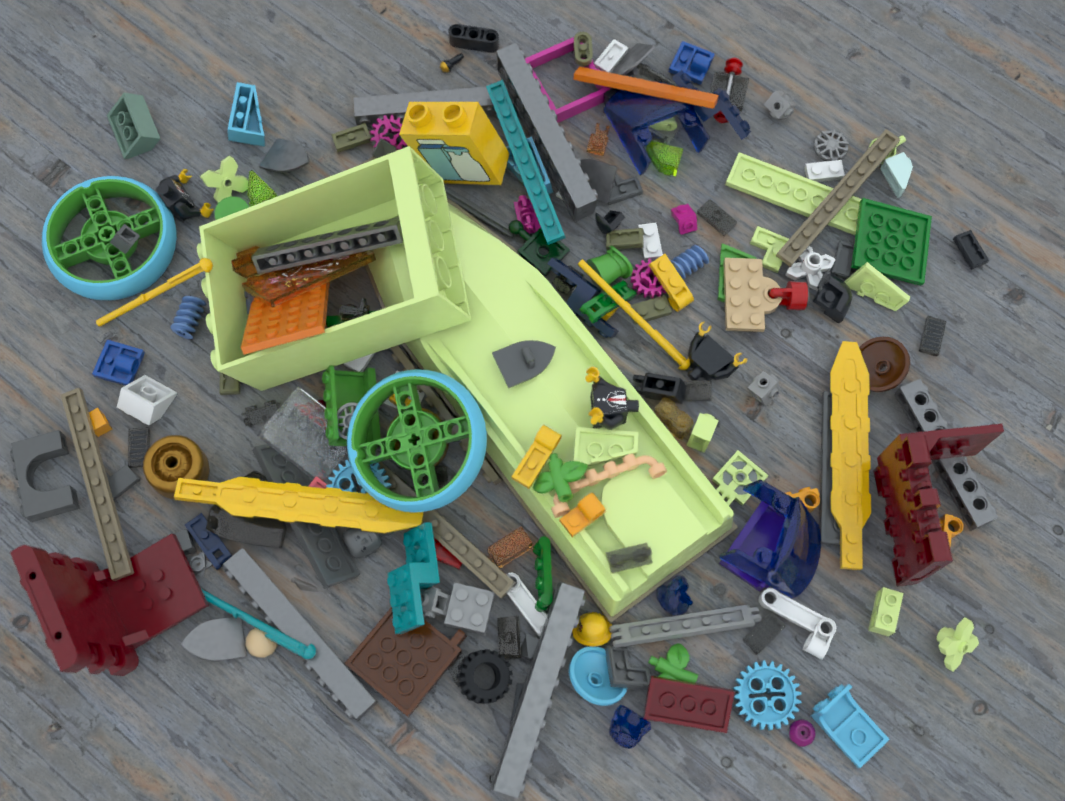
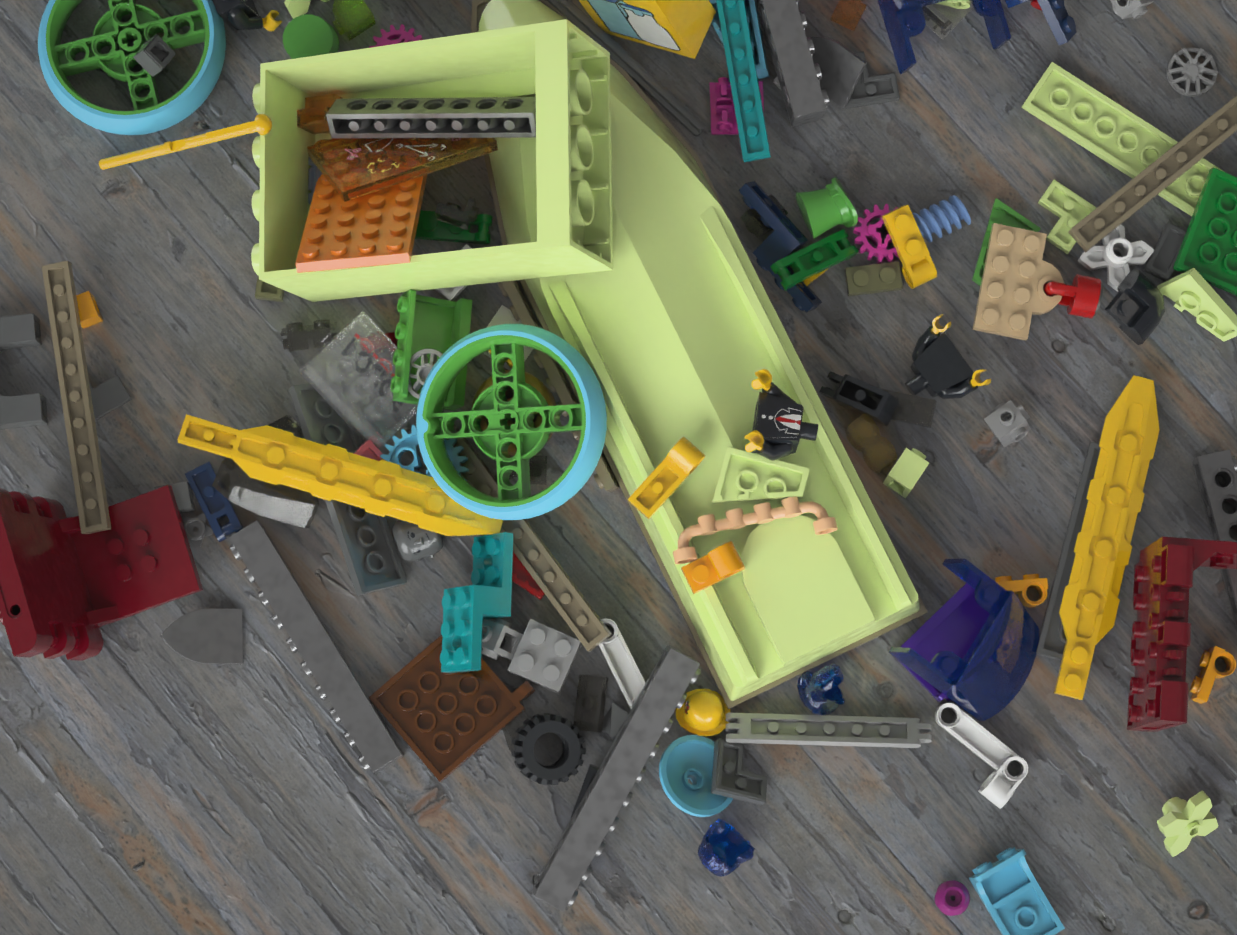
camera: 15 degrees right, 10 degrees up
(118, 363) = (122, 229): blue plate -> none
(137, 446) = (136, 354): clear smoke tile -> none
(145, 399) = (154, 288): white slope -> none
(167, 451) = (205, 393): pearl gold wheel -> none
(186, 316) = (225, 177): medium blue piece -> none
(258, 644) = (264, 648): tan hair -> none
(273, 634) = (285, 646): teal bar -> none
(509, 547) = (613, 583): clear orange brick -> none
(523, 360) = (674, 338): dark grey shield -> none
(530, 252) = (719, 161): dark green plate -> none
(544, 573) = (653, 618): green plate -> none
(559, 477) = (691, 512): bright green plant -> none
(609, 222) = (841, 137): black plate -> none
(625, 239) = (858, 167): olive plate -> none
(629, 557) = (763, 636): clear smoke hinge -> none
(652, 246) = (894, 176): white plate -> none
(654, 334) = (902, 363): yellow bar -> none
(664, 157) = (942, 52): clear neon green slope -> none
(674, 664) = (797, 787): bright green plant -> none
(685, 218) = (951, 150): dark pink bracket -> none
(688, 704) = (809, 834): dark red plate -> none
(717, 217) = (998, 156): clear smoke plate -> none
(736, 474) = (941, 539): yellowish green piece -> none
(764, 633) = (932, 759): clear smoke tile -> none
(769, 714) = (913, 867): medium azure gear -> none
(824, 171) = (1172, 110): white plate -> none
(885, 611) = (1101, 762): yellowish green brick -> none
(888, 353) = (1181, 401): reddish brown dish -> none

